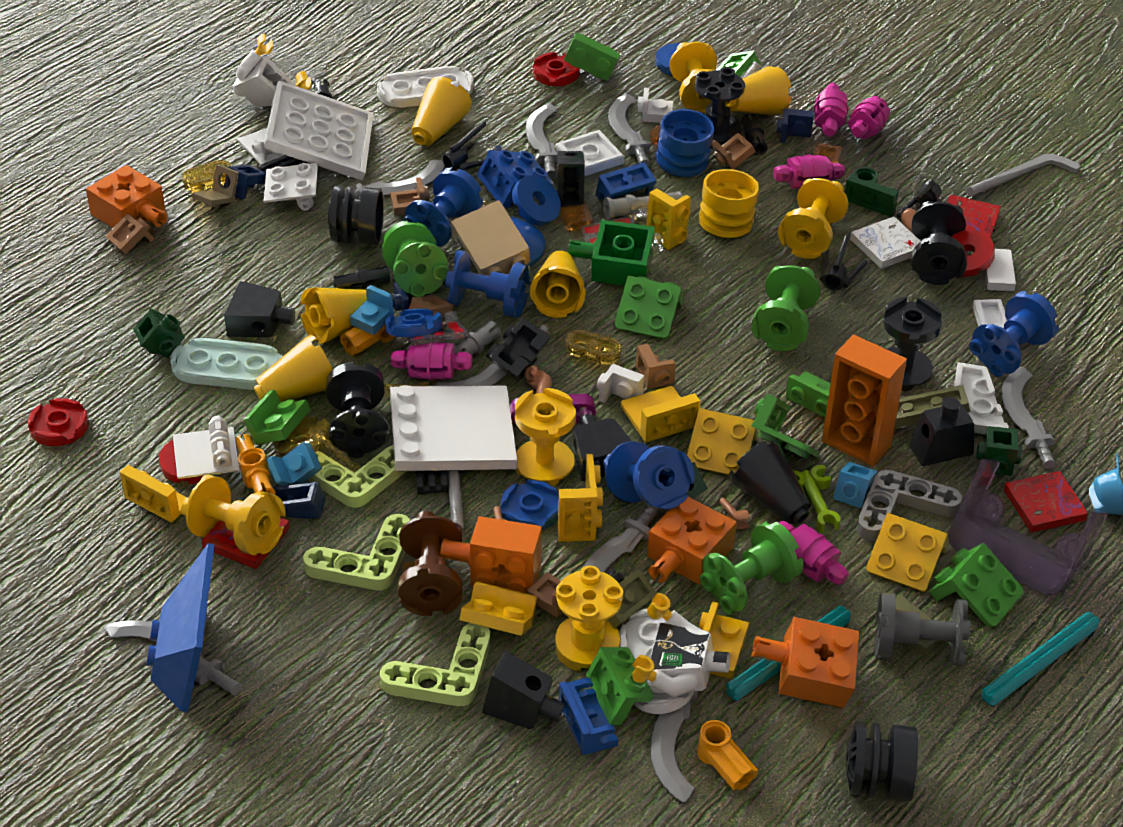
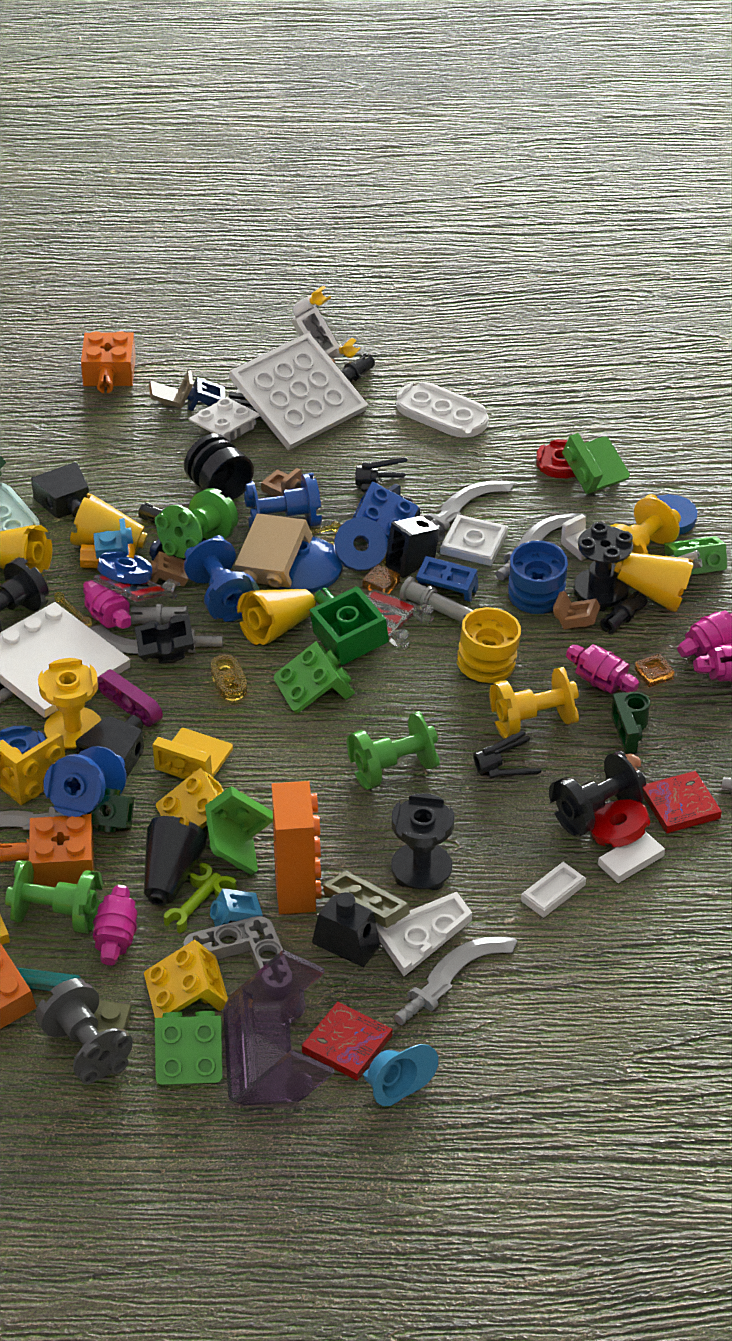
camera: 50 degrees right, 0 degrees up
(129, 233) = (78, 382): medium nougat bracket -> none
(202, 176) = (176, 372): clear yellow plate -> none
(428, 175) = (288, 465): light grey sword -> none
(439, 110) = (401, 433): yellow cone -> none
(537, 378) = (157, 677): nougat arm -> none
(620, 382) = (195, 710): white bracket -> none
(655, 372) = (238, 721): medium nougat bracket -> none
(668, 217) = (425, 625): yellow bracket -> none
(739, 516) = (123, 865): nougat hand -> none
(795, 123) = (664, 623): dark blue bracket -> none
(809, 392) = (331, 835): bright green bracket -> none
(885, 242) = (576, 762): white tile -> none
(928, 192) = (673, 756): black plant -> none
(1005, 452) = (362, 973): dark green brick -> none
(1028, 320) = (538, 903): blue piece -> none
(1039, 658) = (148, 1130): teal axle -> none

